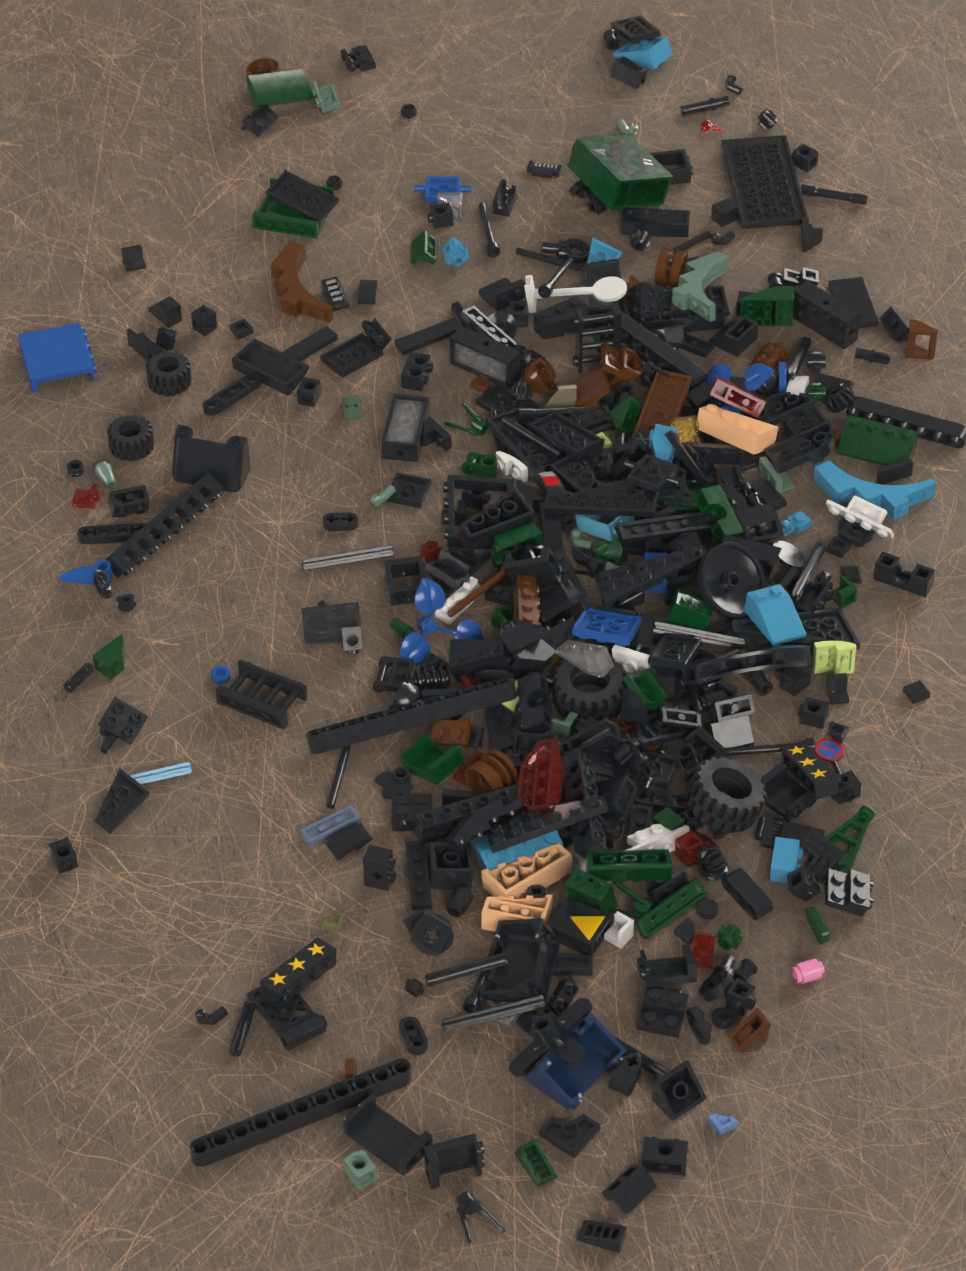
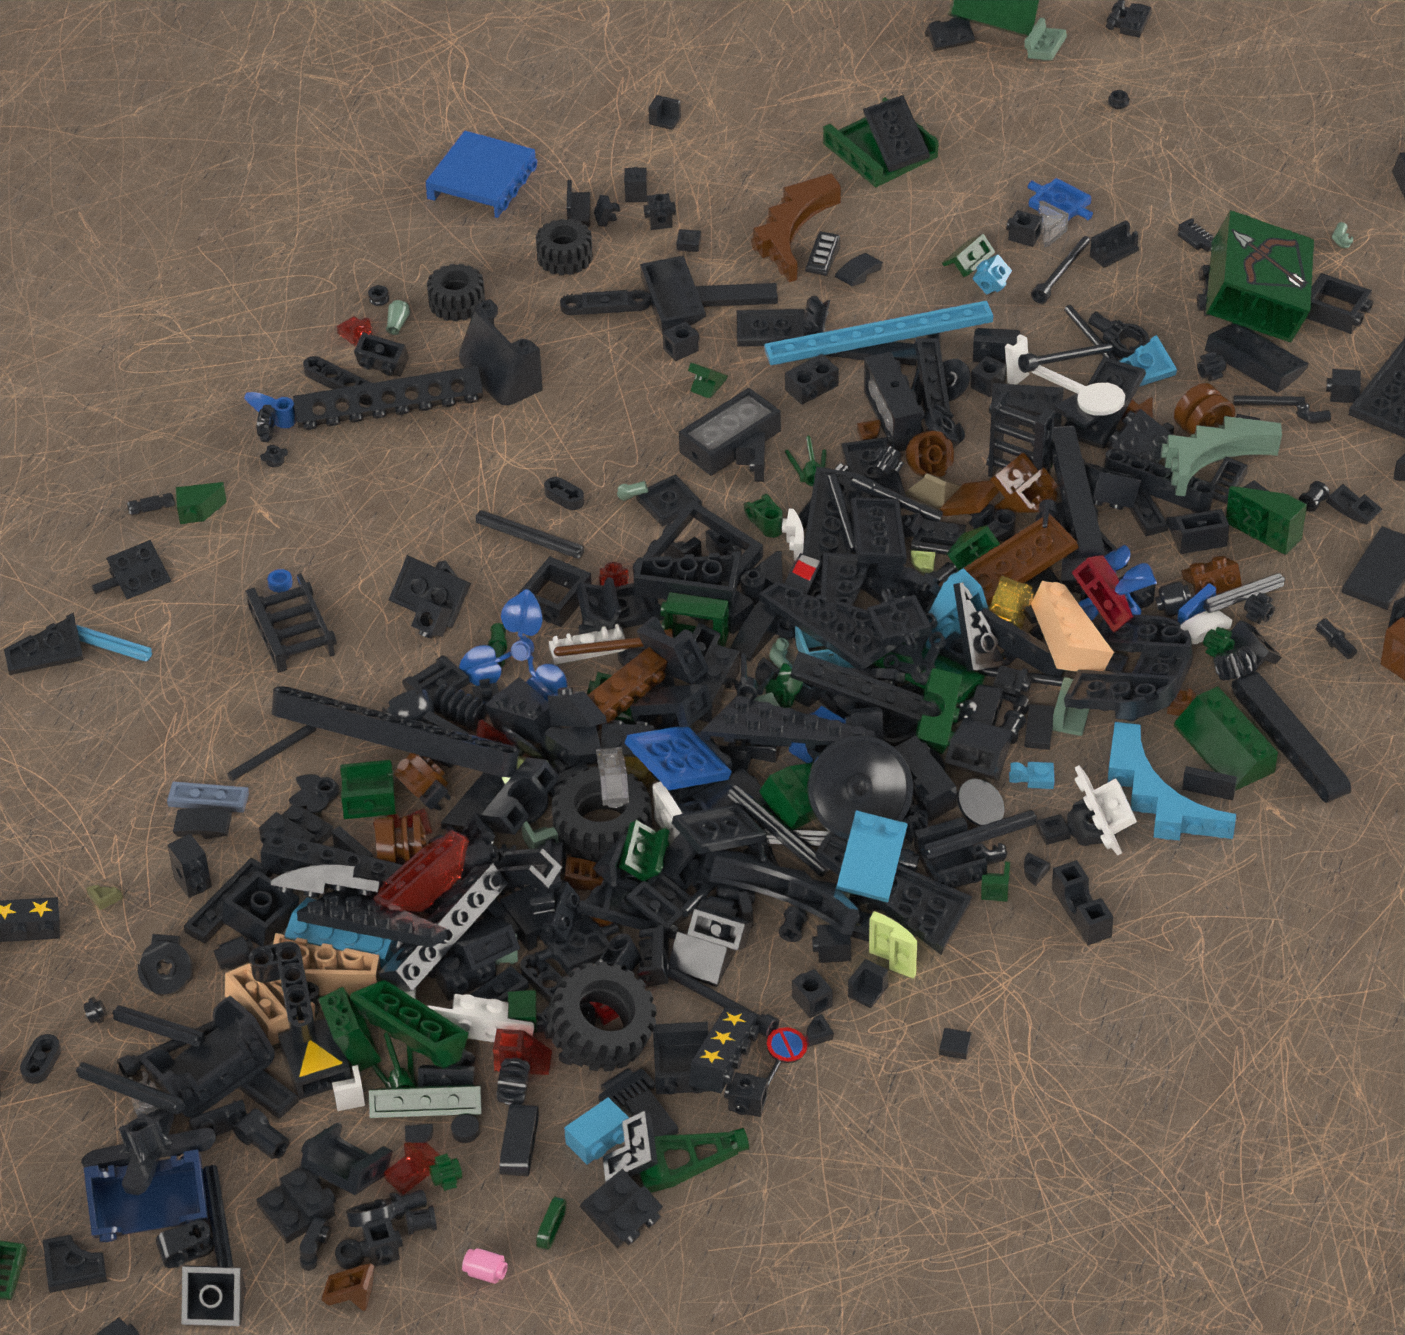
camera: 40 degrees right, 0 degrees up
(334, 182) = (954, 137): black plate -> none
(428, 322) = (878, 333): none -> dark azure plate
(523, 880) = (285, 963): none -> black beam
(594, 988) = (257, 1130): none -> black piece
(804, 884) = (583, 1169): black brick -> none
(826, 315) = (1323, 561): black brick -> none

